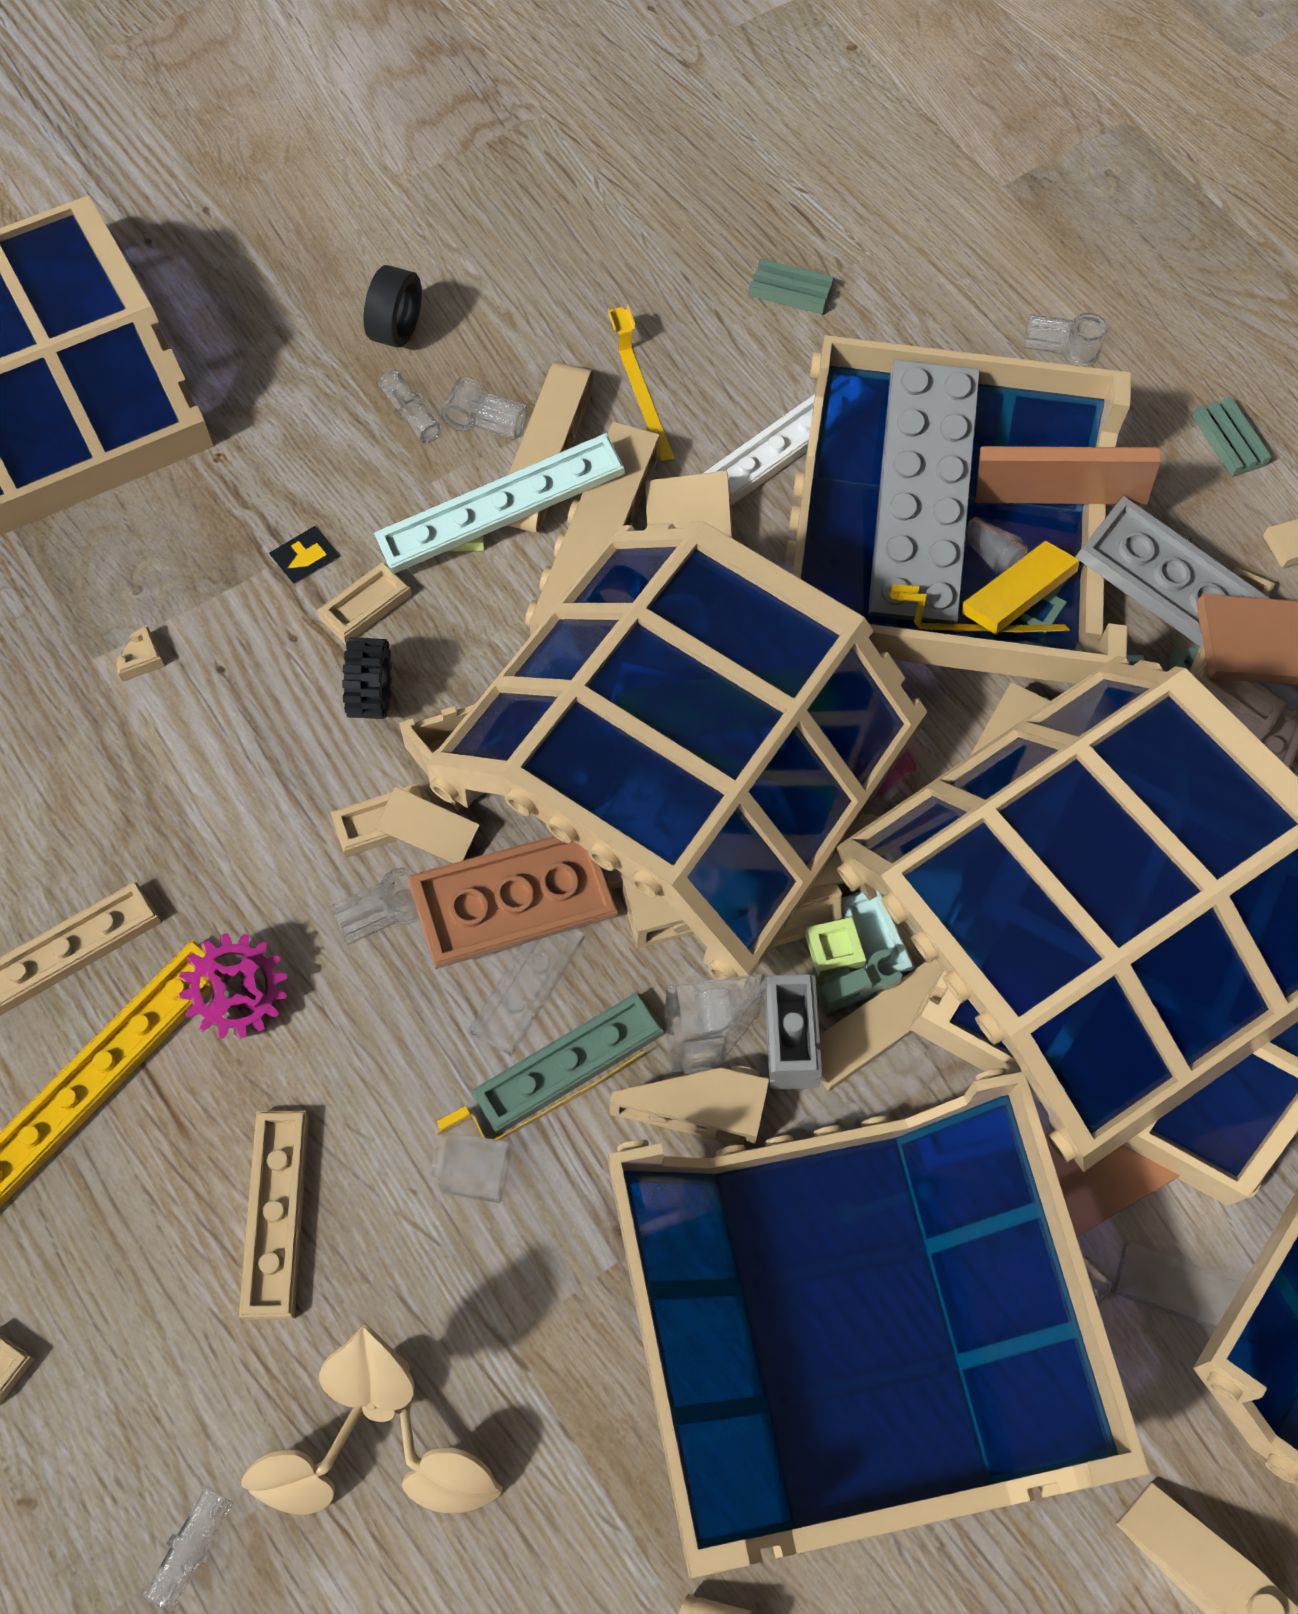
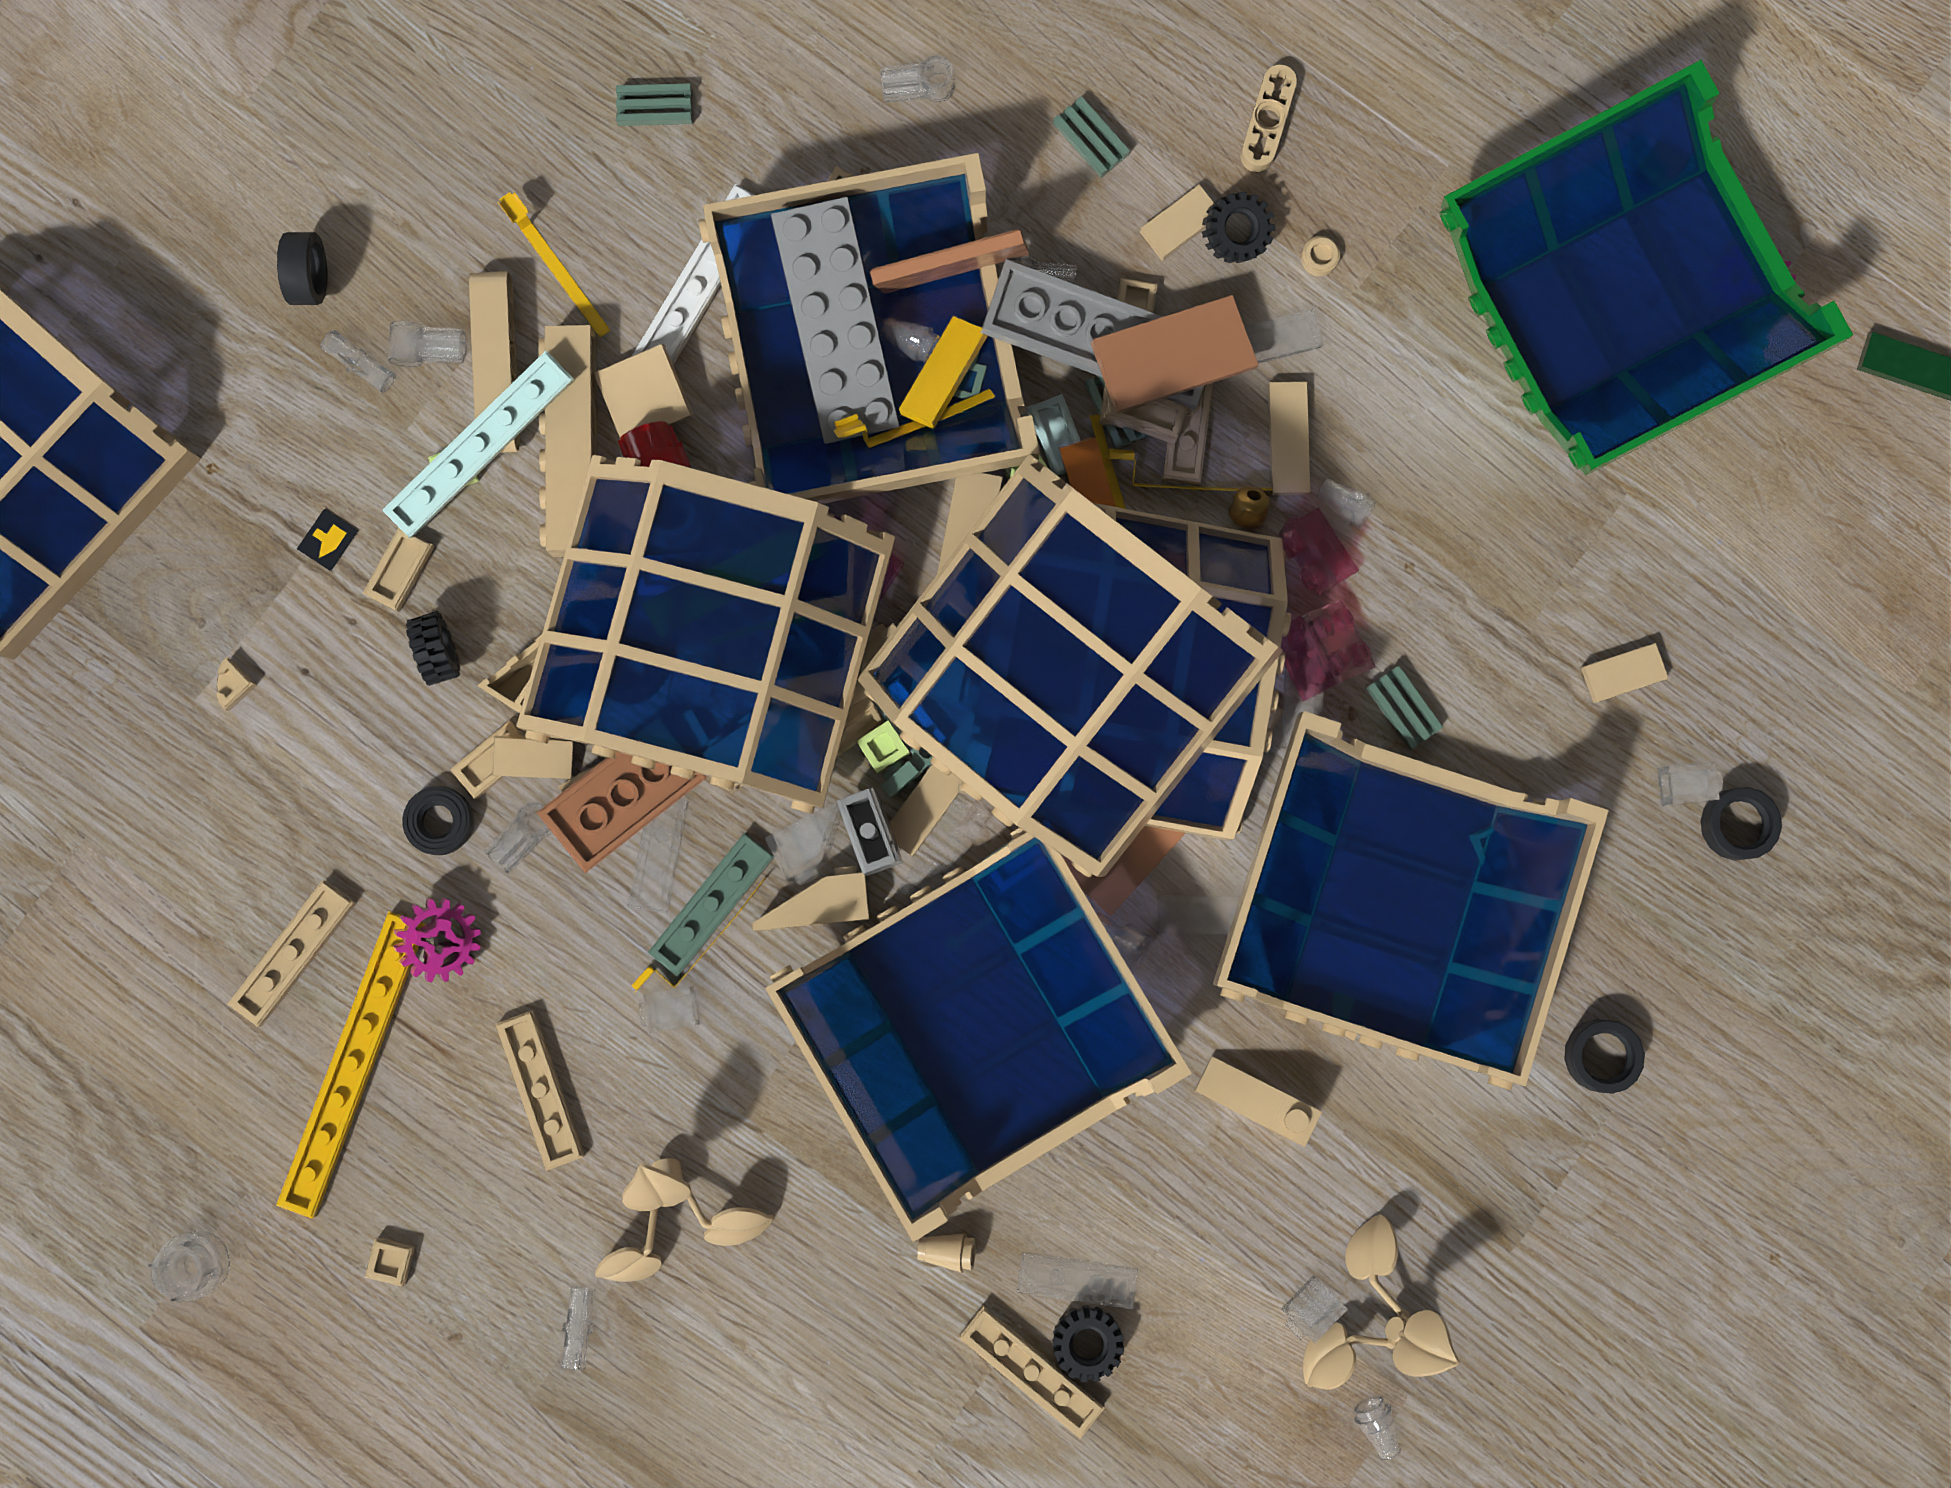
camera: 20 degrees left, 20 degrees up
(284, 836) = (414, 820): none -> black tyre

